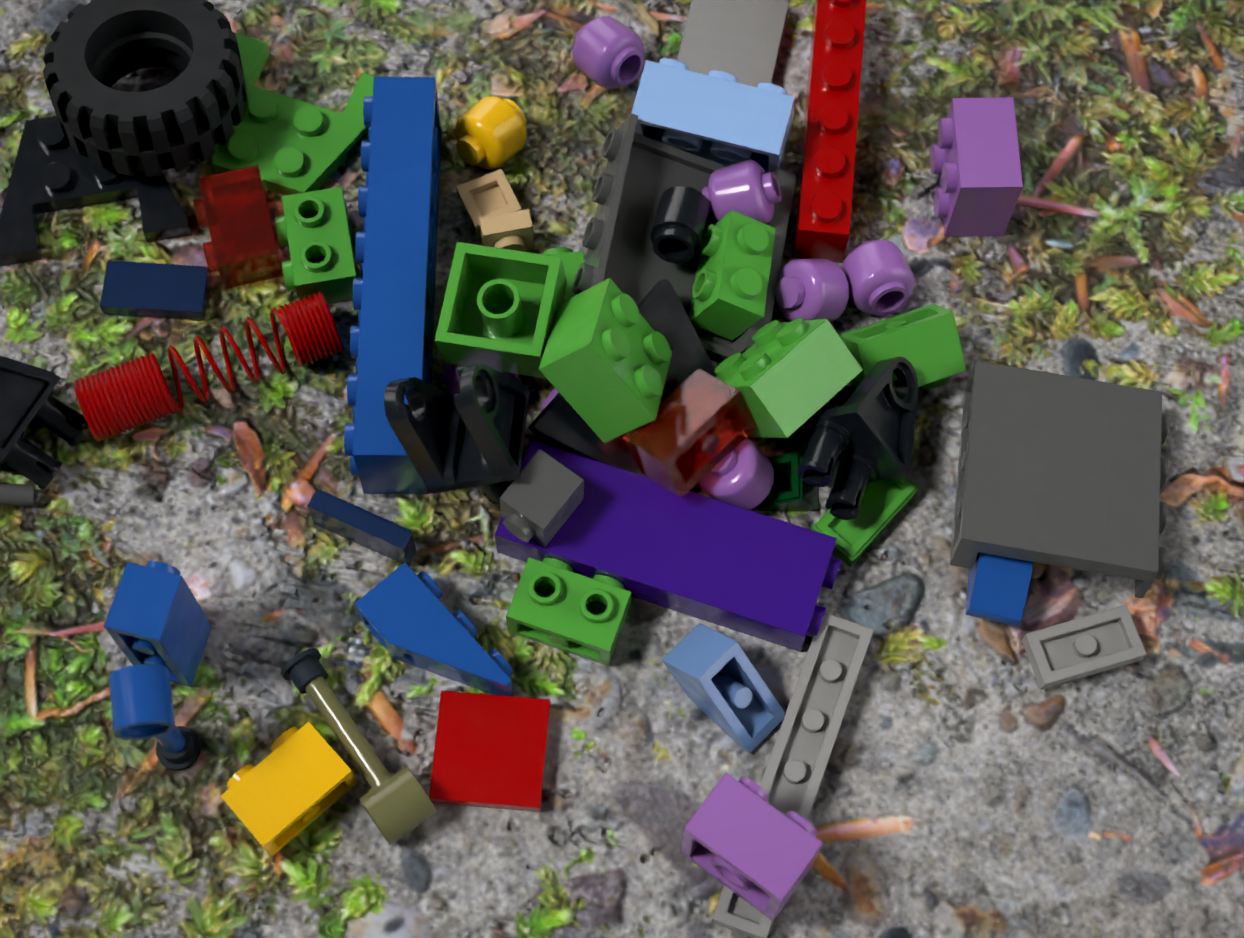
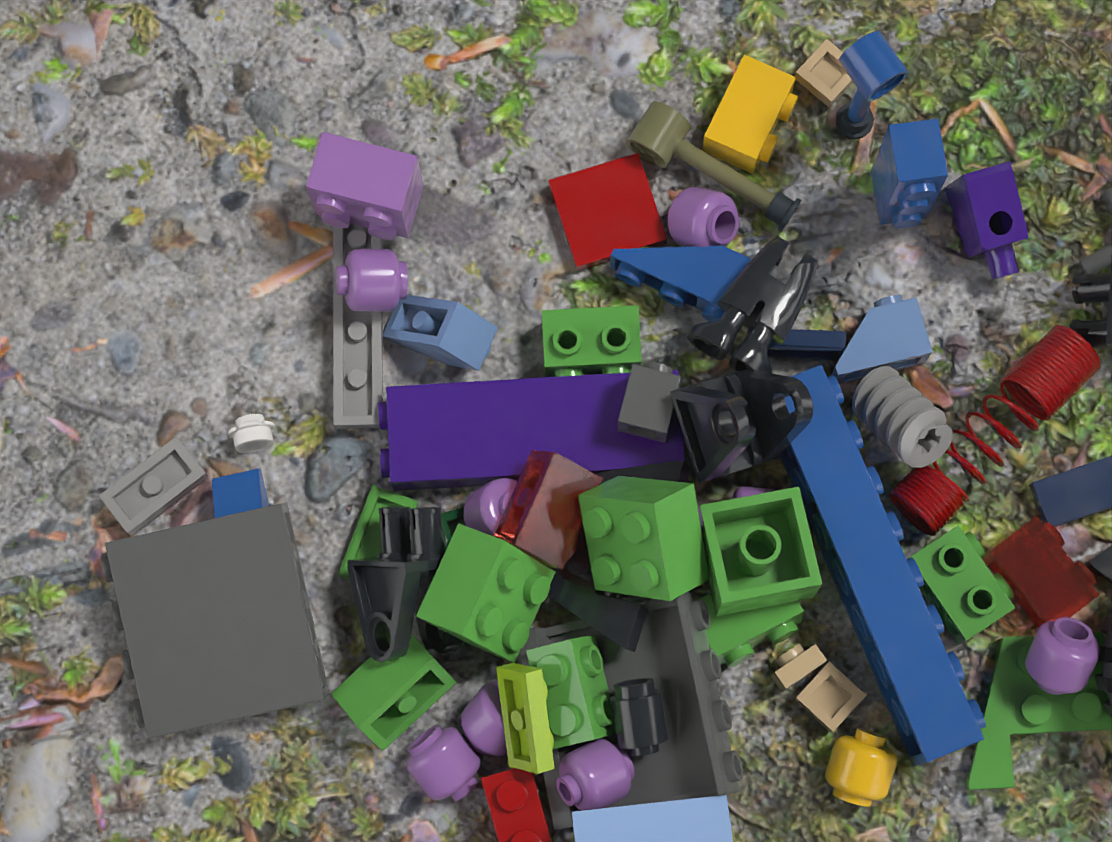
camera: 165 degrees right, 10 degrees up
(93, 566) = (988, 198): none -> dark purple torso
(180, 803) = (824, 74): none -> tan plate
(263, 133) = (1062, 656): none -> medium lavender head
(272, 493) = (887, 336): none -> medium blue slope
(298, 401) = (901, 417): none -> light grey piece
(377, 555) = (759, 304): none -> black piece
(395, 687) = (702, 218): none -> medium lavender head
(779, 751) = (372, 280): none -> medium lavender head
(788, 254) = (525, 717): none -> lime plate
(962, 661) = (252, 433): none -> white plate

